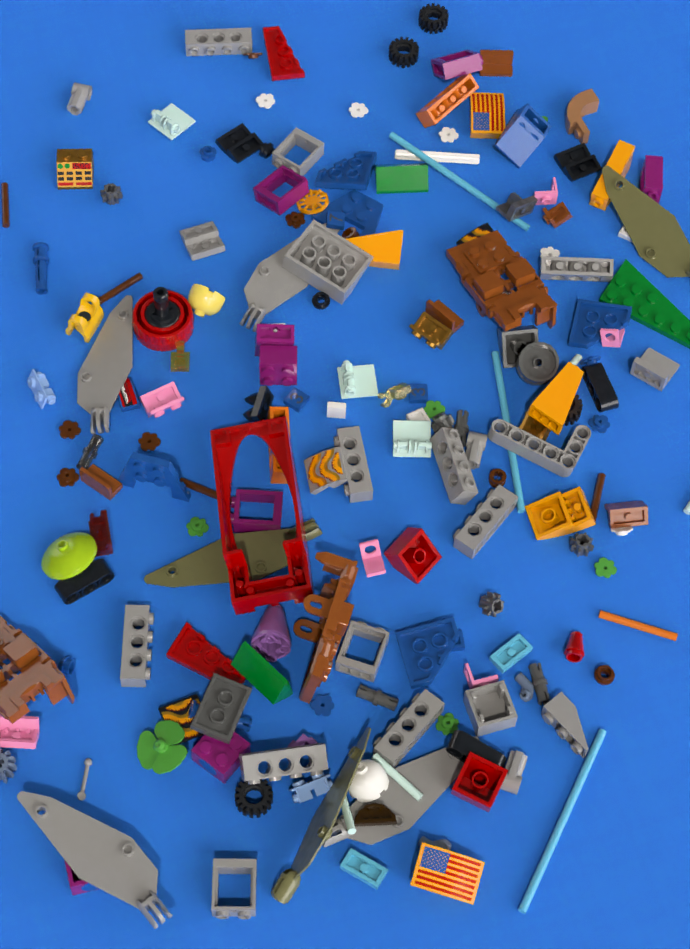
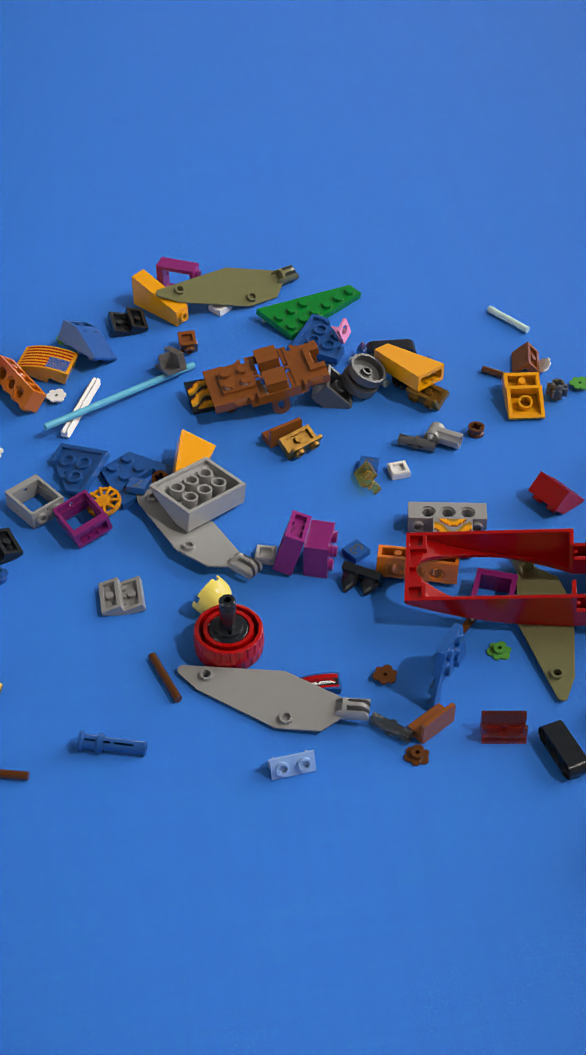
camera: 75 degrees left, 15 degrees down
(69, 429) = (354, 744): reddish brown plant -> none
(69, 555) = (542, 765): lime dish -> none
(87, 317) = (204, 707): yellow piece -> none
(111, 194) = (25, 664): dark grey gear -> none
(161, 399) = (337, 653): bright pink bracket -> none
(180, 360) = (283, 633): clear yellow plate -> none
(266, 150) = (18, 525): black plate -> none
(295, 219) = (119, 521): reddish brown plant -> none
(321, 296) = (239, 511): black plate -> none
(336, 410) = (378, 520): white tile -> none
(357, 380) = (344, 504): light aqua hinge -> none
(372, 561) = (562, 521): bright pink bracket -> none
(401, 178) = (98, 430): green slope -> none
(412, 438) = (424, 474): light aqua hinge -> none
(433, 408) = (389, 456): bright green plant -> none
(442, 420) = (412, 450): dark grey gear -> none
(453, 466) = (493, 451): light grey brick -> none
(472, 544) = (526, 442): light grey brick -> none
(505, 416) = (423, 415): medium azure piece -> none
(541, 447) = (463, 386): light grey beam -> none
(547, 197) = (164, 340): bright pink bracket -> none
(550, 251) = (230, 356): white plant -> none
(576, 269) = (260, 333): light grey brick -> none
(579, 106) = (68, 310): medium nougat arch -> none
(654, 369) = (378, 318): light grey bracket -> none

